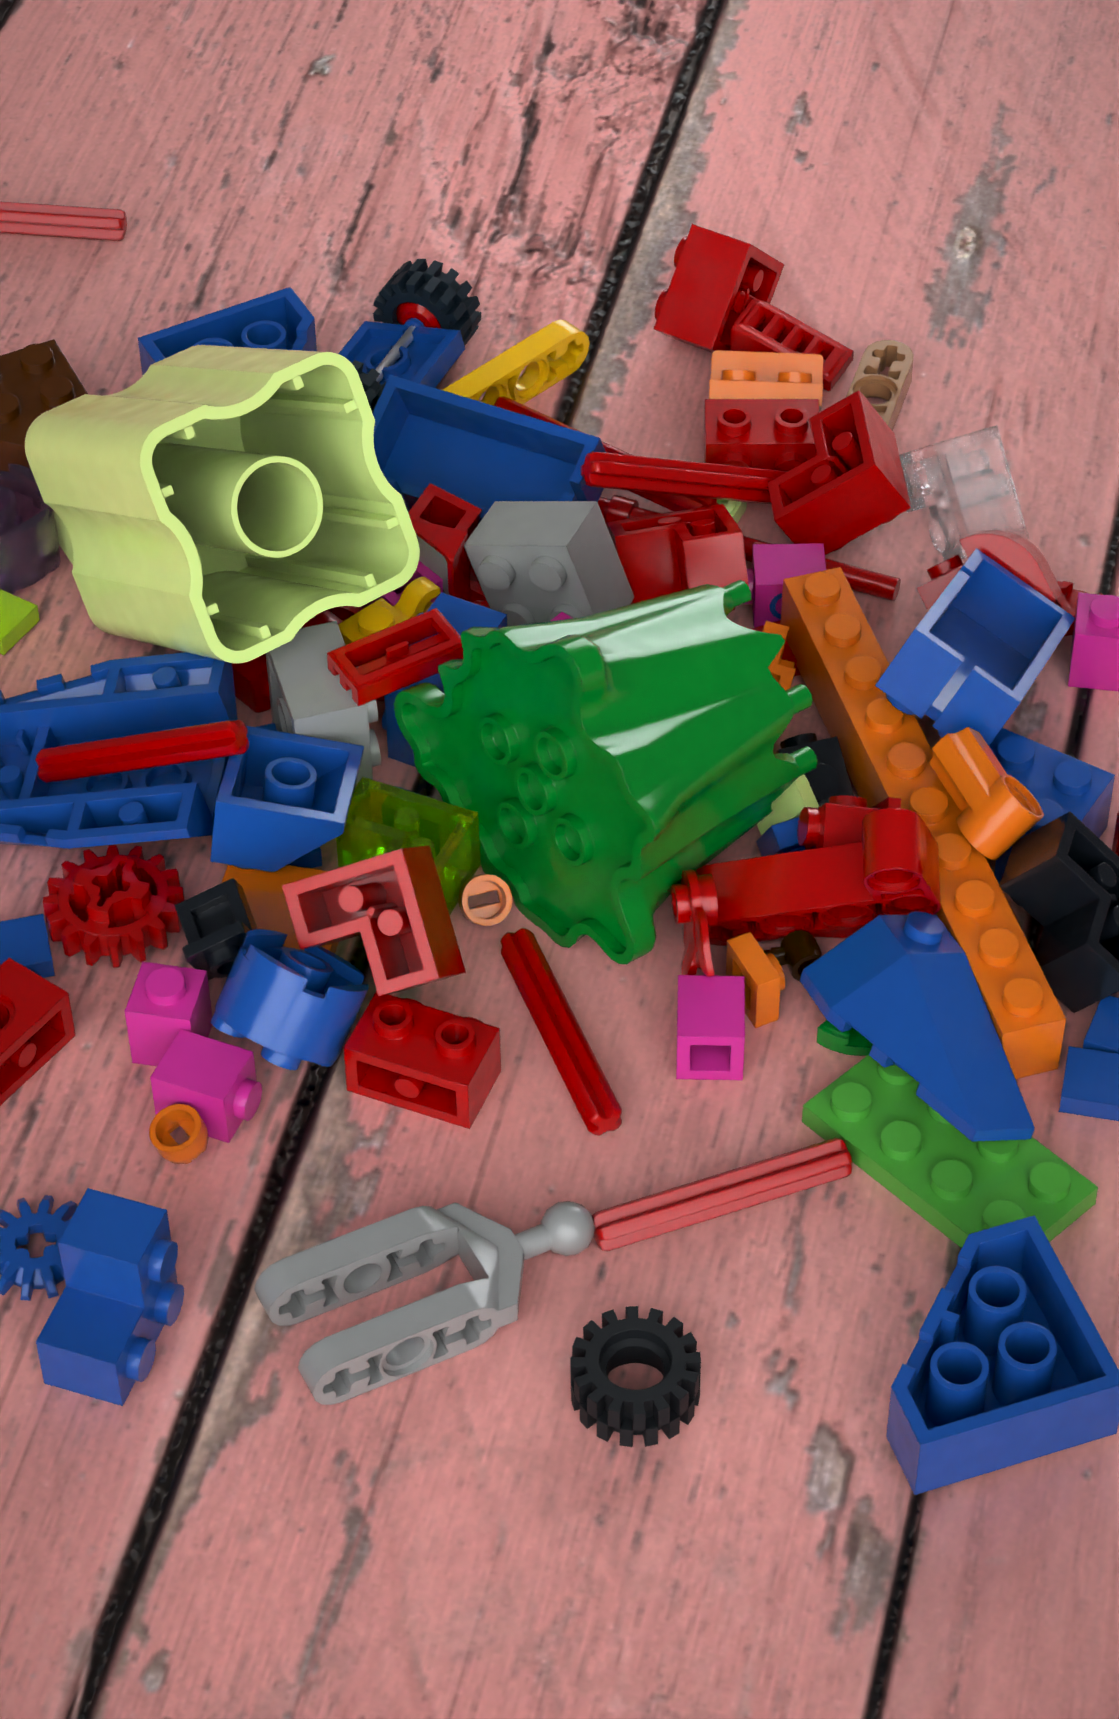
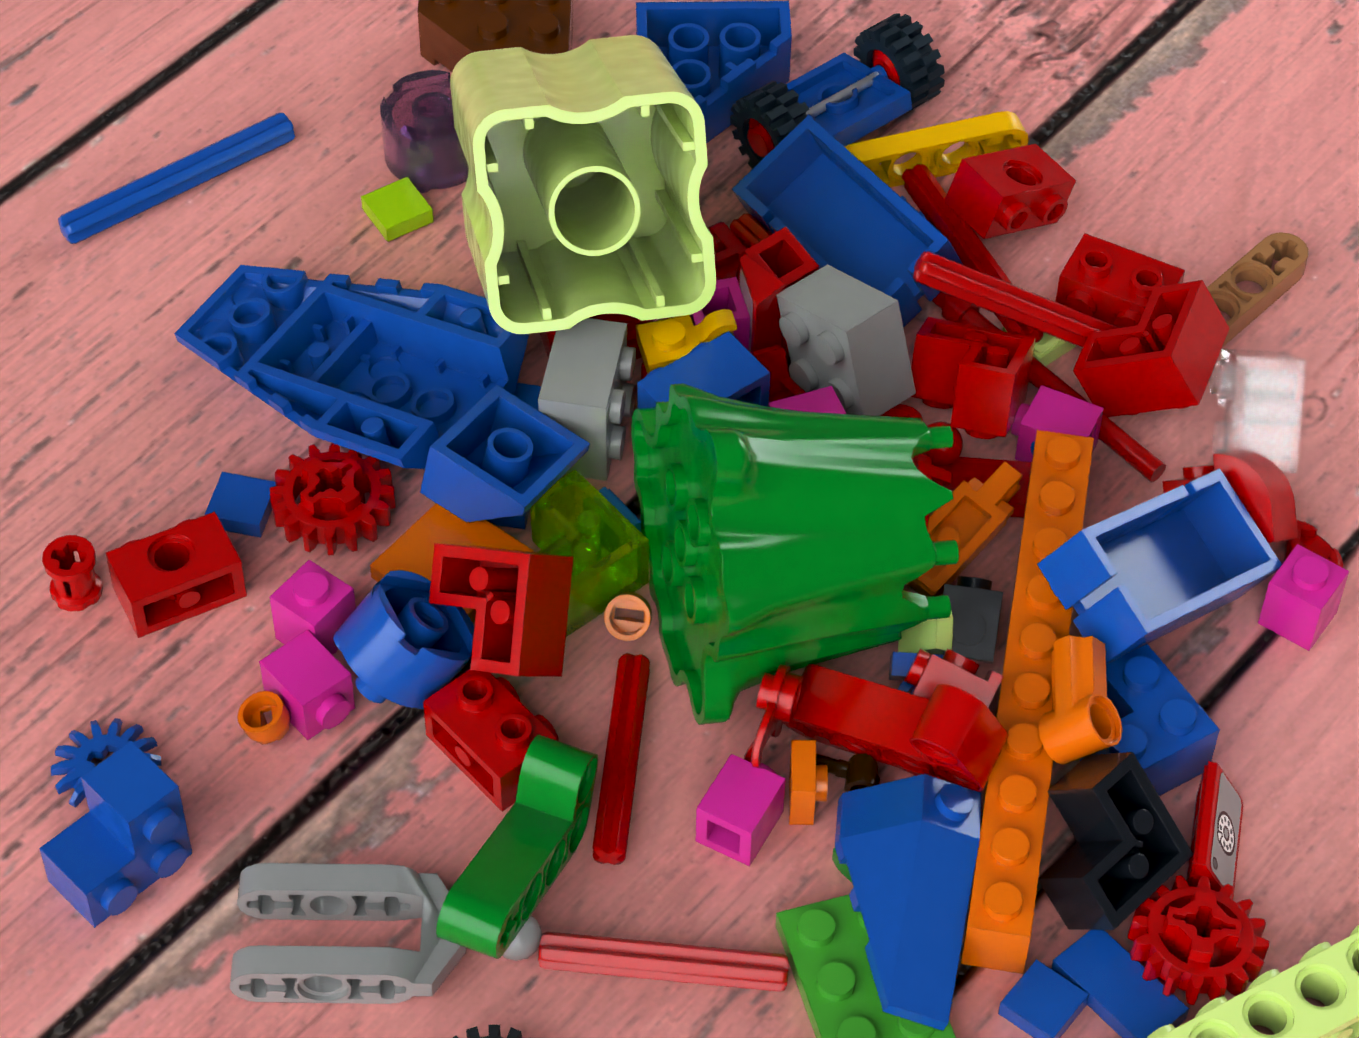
camera: 25 degrees right, 5 degrees up
(143, 751) = (414, 376): red axle -> none
(215, 927) = (384, 548): black bracket -> none
(402, 662) = (652, 382): red tile -> none
(535, 1135) = (524, 850): none -> green beam
(607, 389) = (1010, 191): none -> red brick
(713, 287) = (1159, 130): red brick -> none
(766, 375) = (1159, 233): orange bracket -> none
(769, 329) = (1191, 179): red slope -> none

